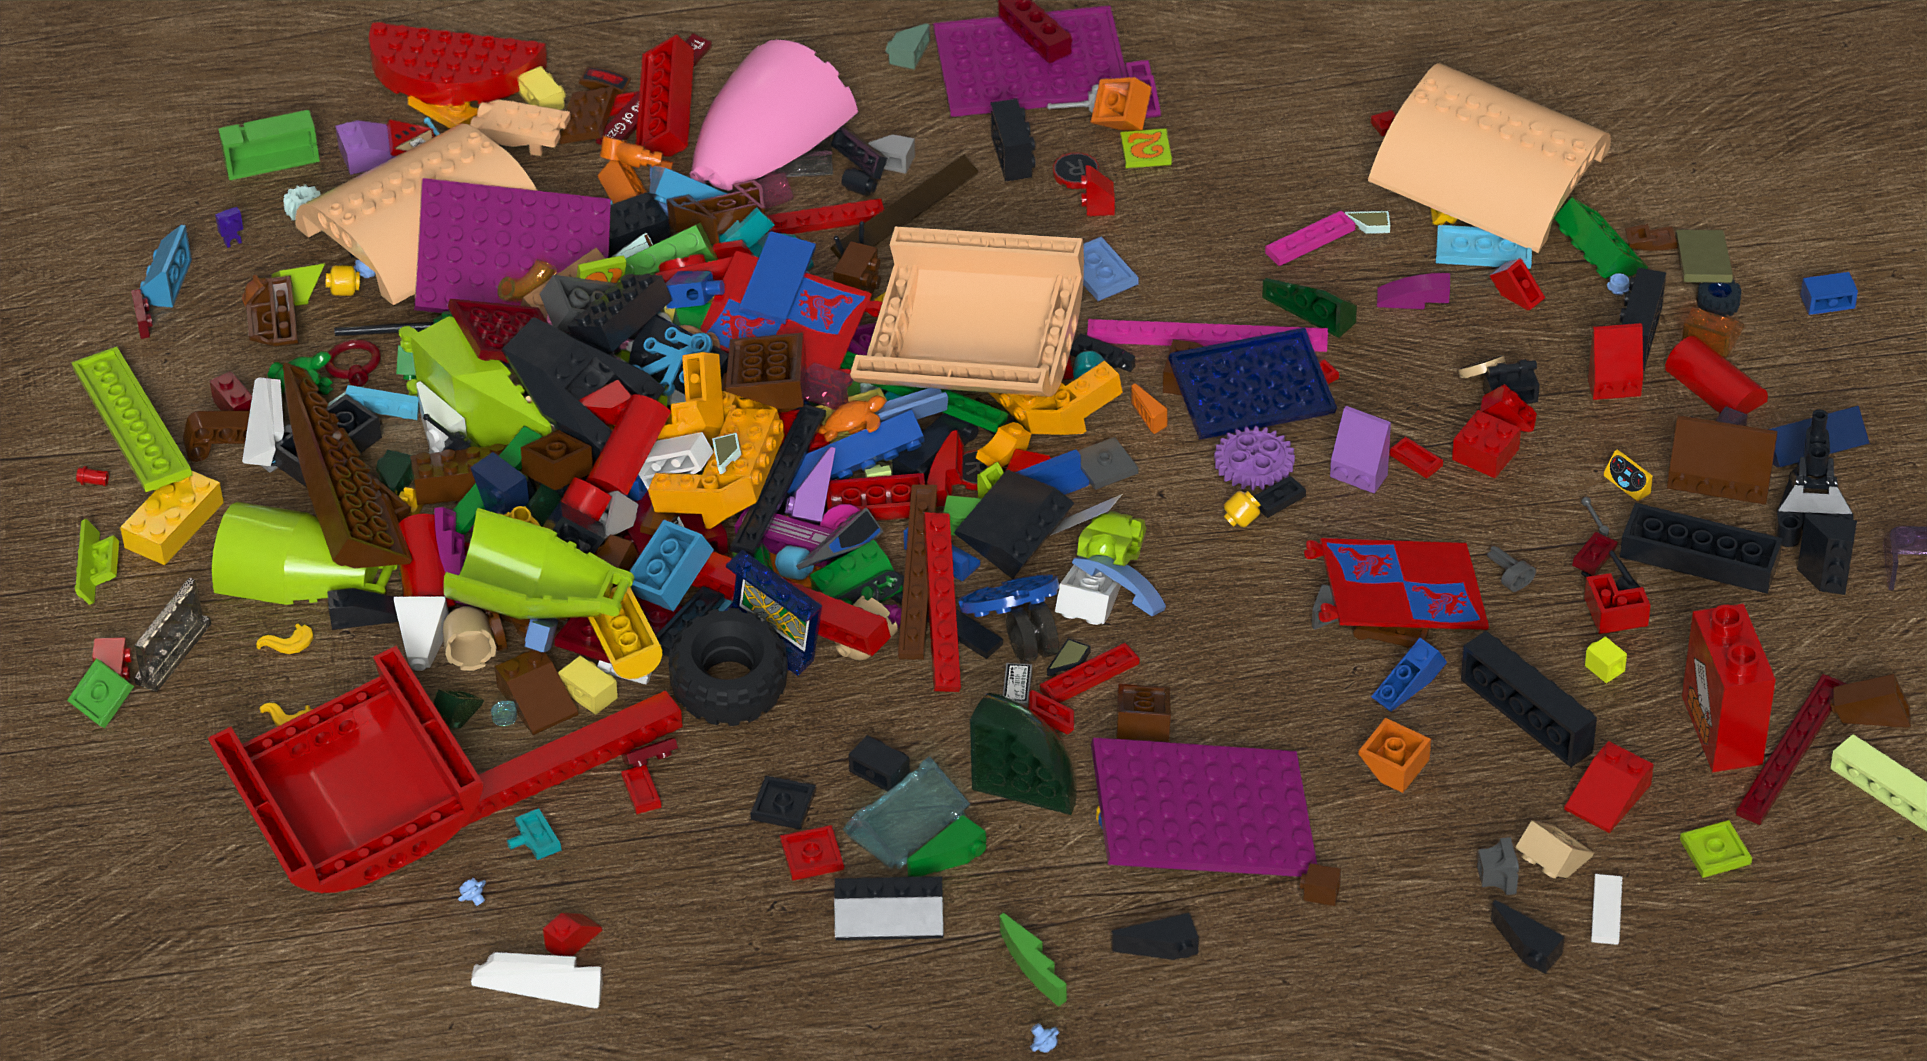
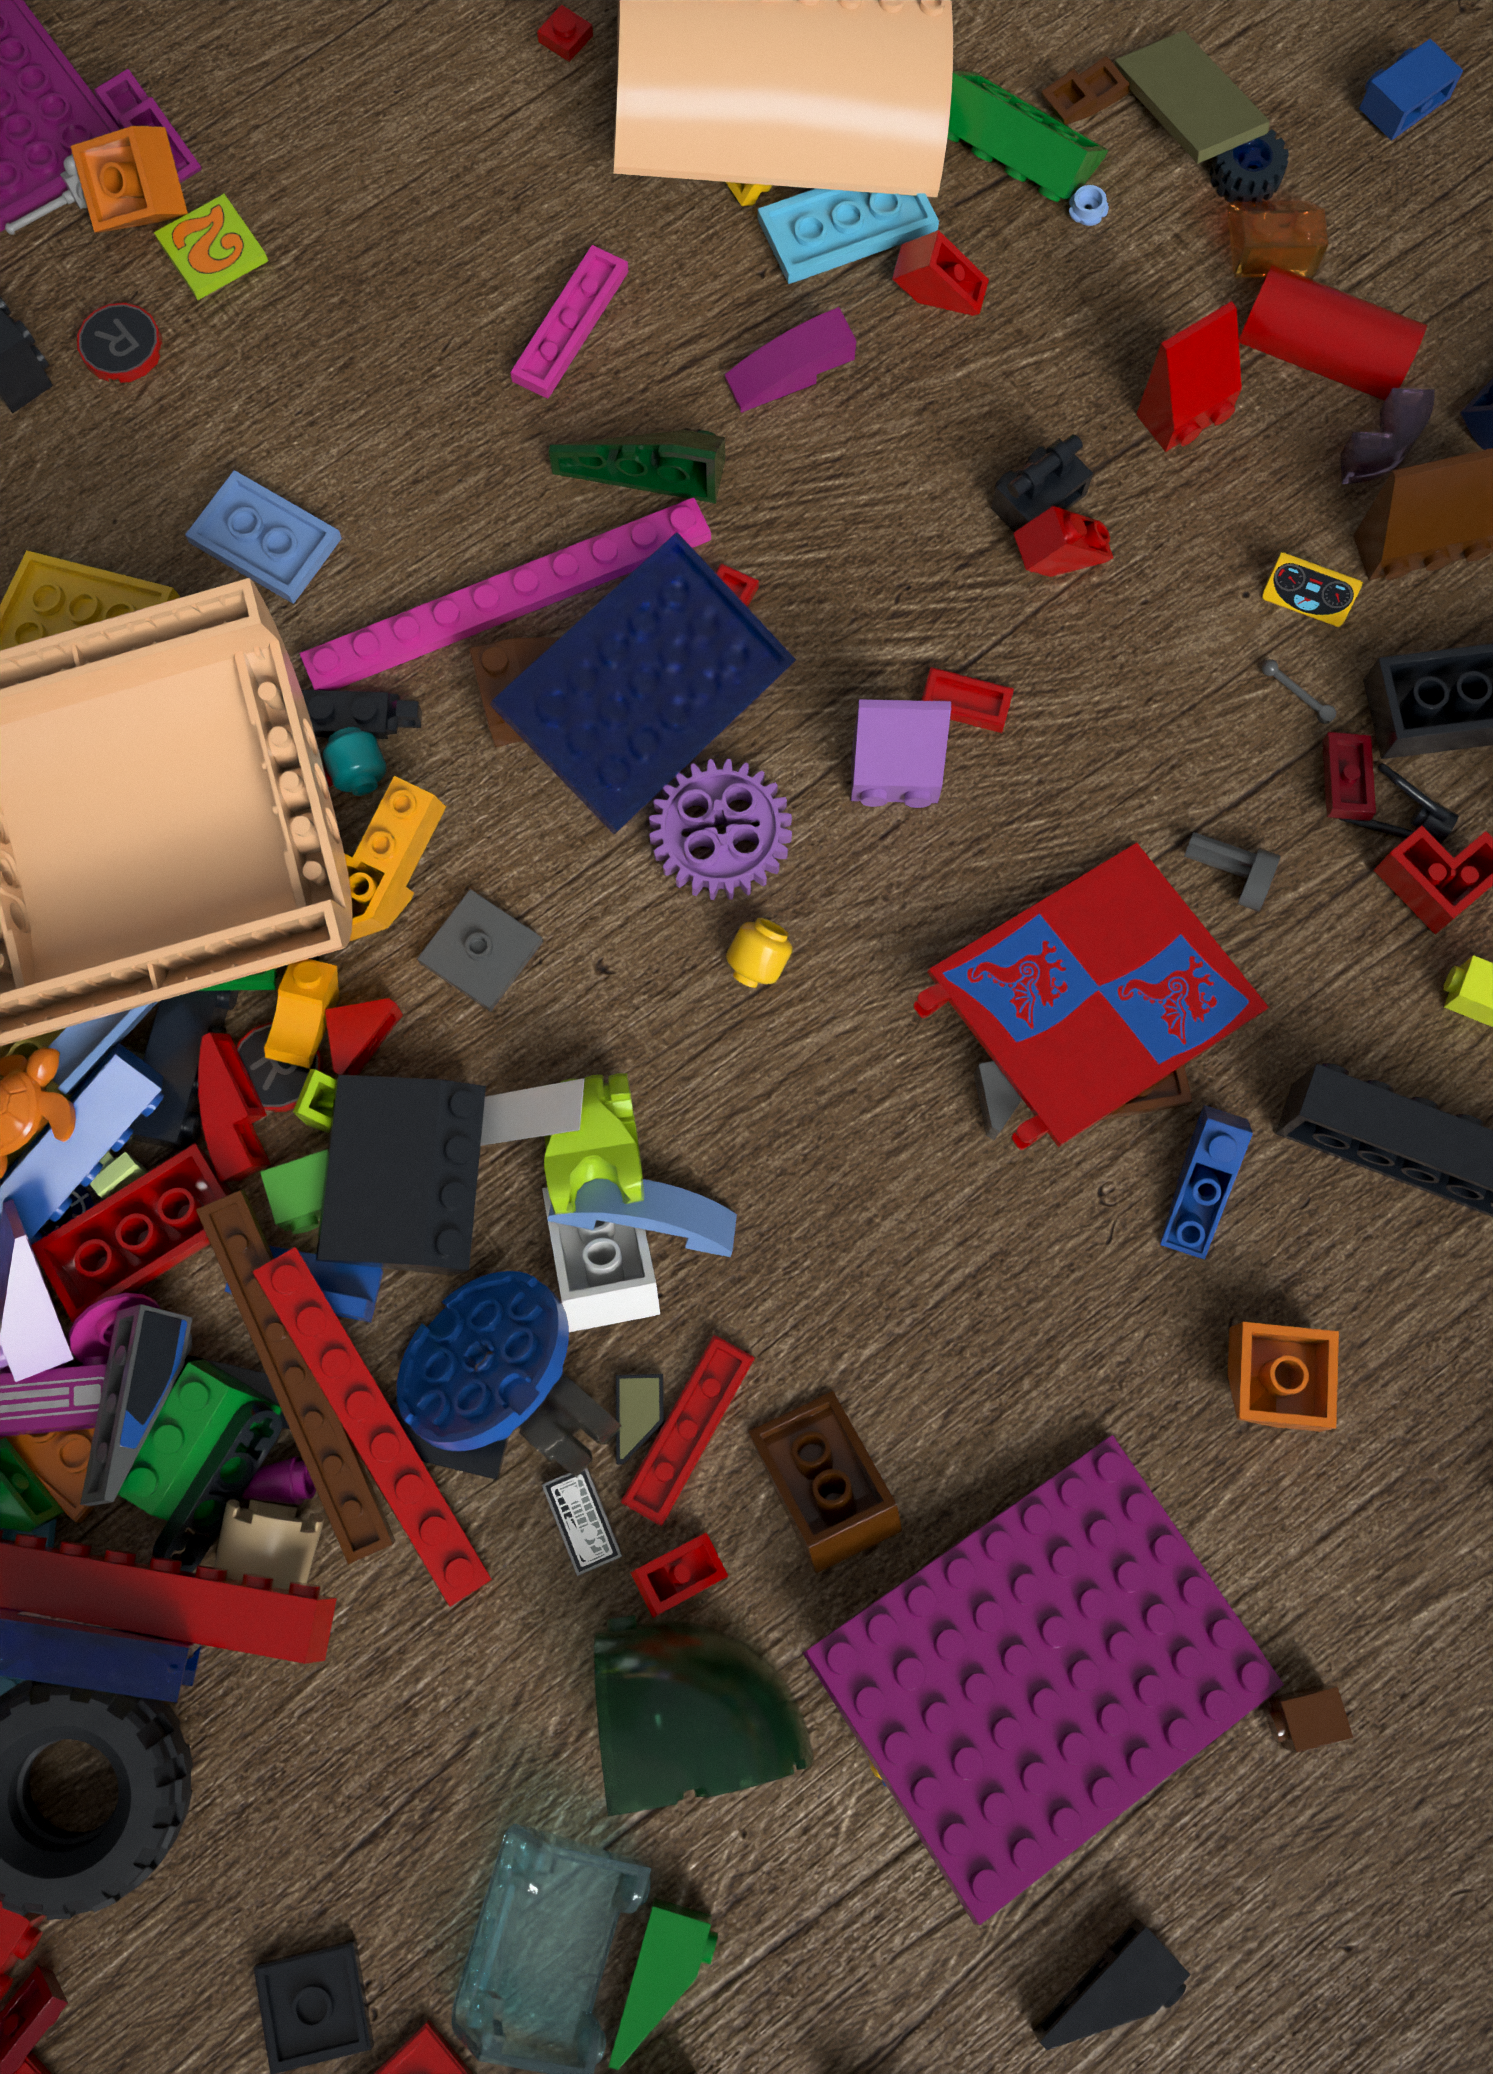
camera: 30 degrees left, 30 degrees up
(788, 559) = (61, 1458): medium azure head -> none
(878, 763) = (441, 1838): black brick -> none
(1059, 472) = (414, 1028): blue panel -> none
(1099, 193) = (183, 383): red slope -> none
(1149, 409) = (504, 807): orange slope -> none
(1280, 496) = (801, 890): black plate -> none
(1371, 221) = (645, 243): tile -> none
(1479, 367) = (980, 473): tan tile -> none
(1486, 444) = (1069, 628): red brick -> none
(1645, 305) = (1169, 254): black brick -> none

